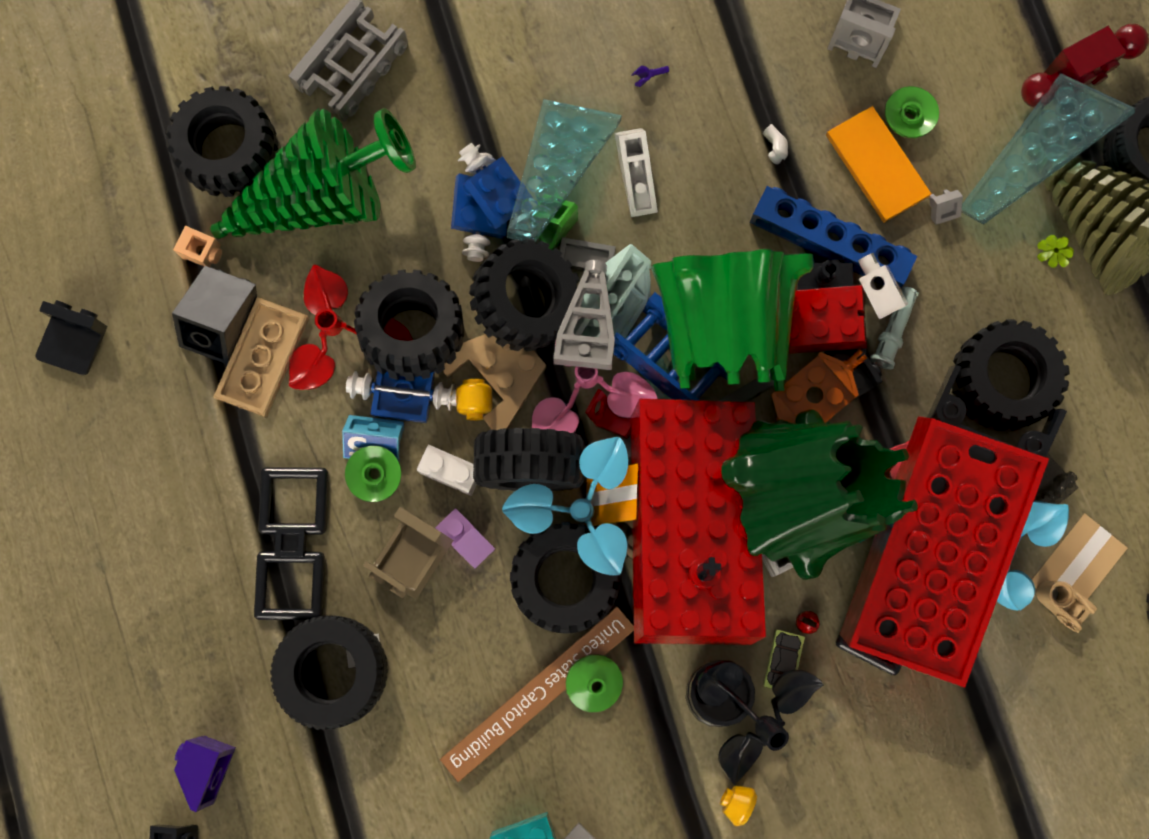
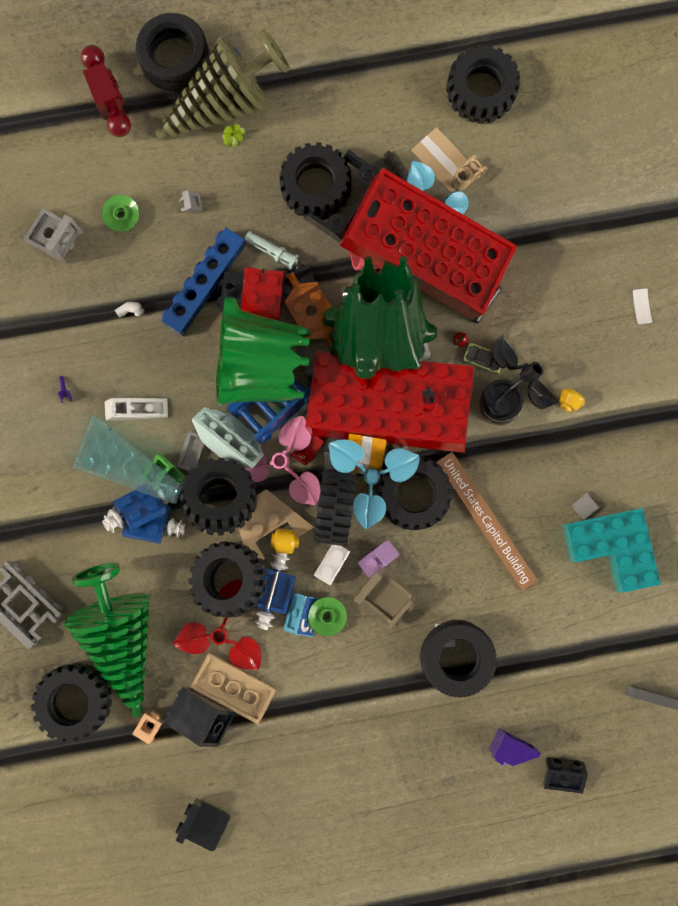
camera: 85 degrees left, 5 degrees up
(291, 543) = (367, 678): black bar -> none
(585, 673) = (476, 483): bright green dish -> none
(586, 350) = (265, 461): light grey plate -> none
(878, 164) = (154, 242): light orange tile -> none
(890, 296) = (254, 251): white torso -> none
(1053, 134) = (154, 122): clear light blue wing -> none

